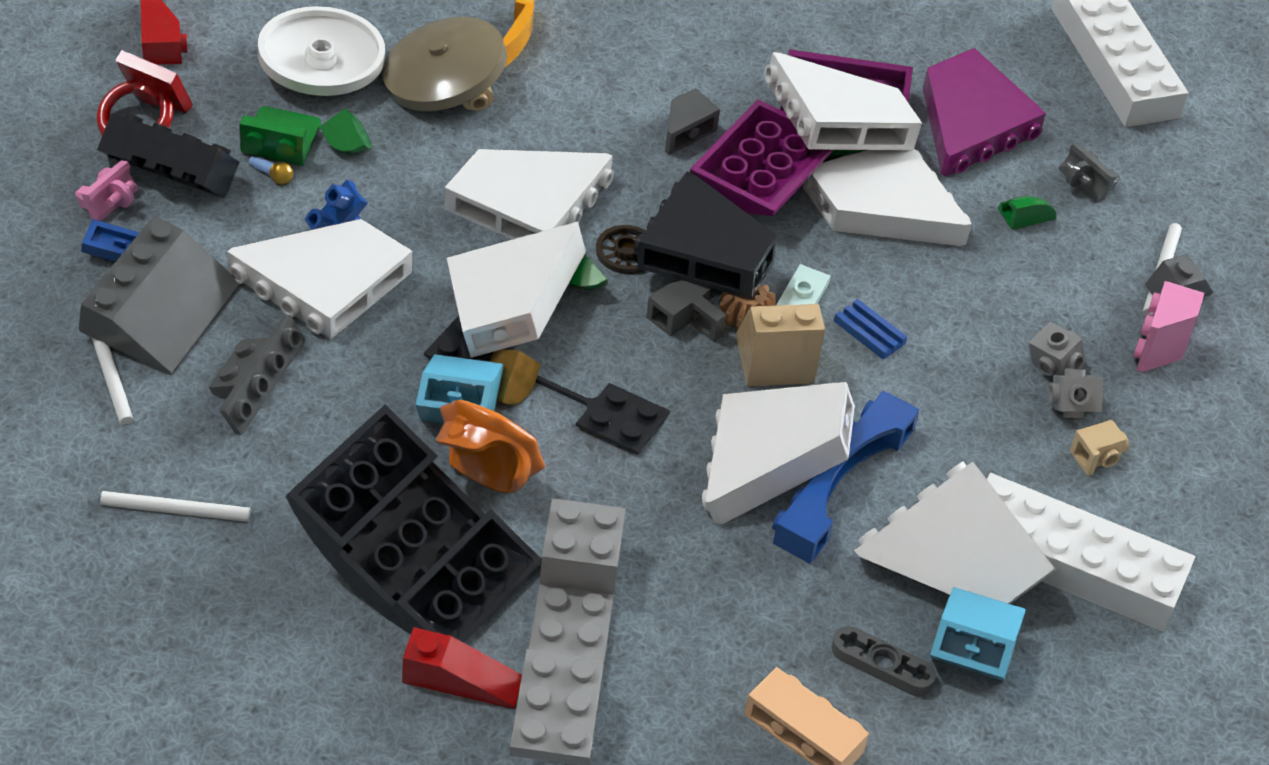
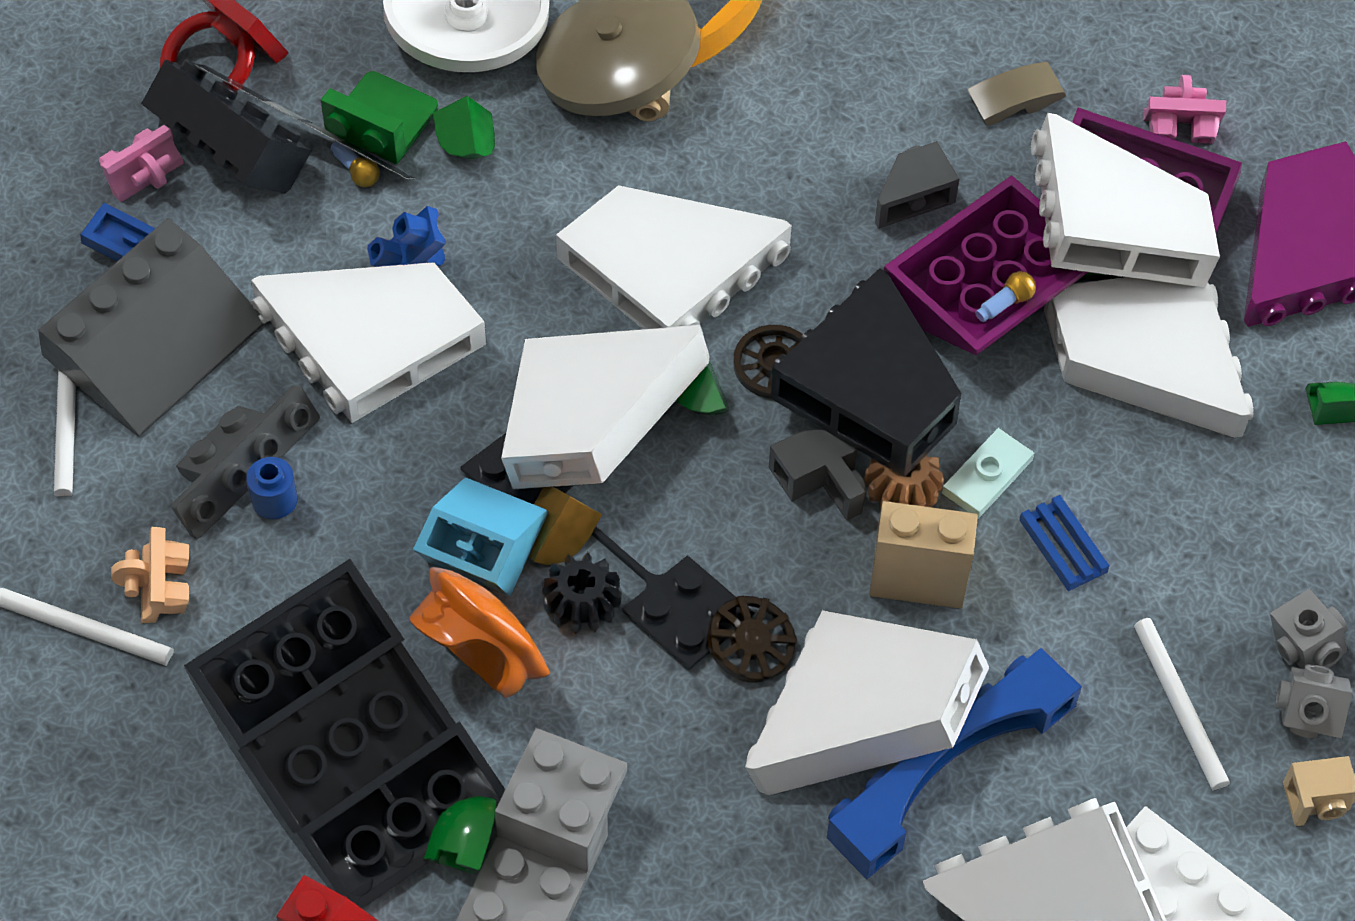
camera: 20 degrees right, 10 degrees up
(217, 461) = (158, 558): none -> light nougat hips
(226, 143) = (303, 120): none -> sticker
(291, 386) = (272, 488): none -> blue brick
(517, 586) = (462, 834): none -> green brick
(545, 415) = (599, 595): none -> black gear
(675, 425) = (751, 638): none -> dark brown wheel
(734, 52) = (1016, 89): none -> dark tan slope
(790, 166) = (1018, 288): none -> piece
(858, 44) = (1185, 105): none -> bright pink hips
(985, 414) = (1181, 704): none -> white bar

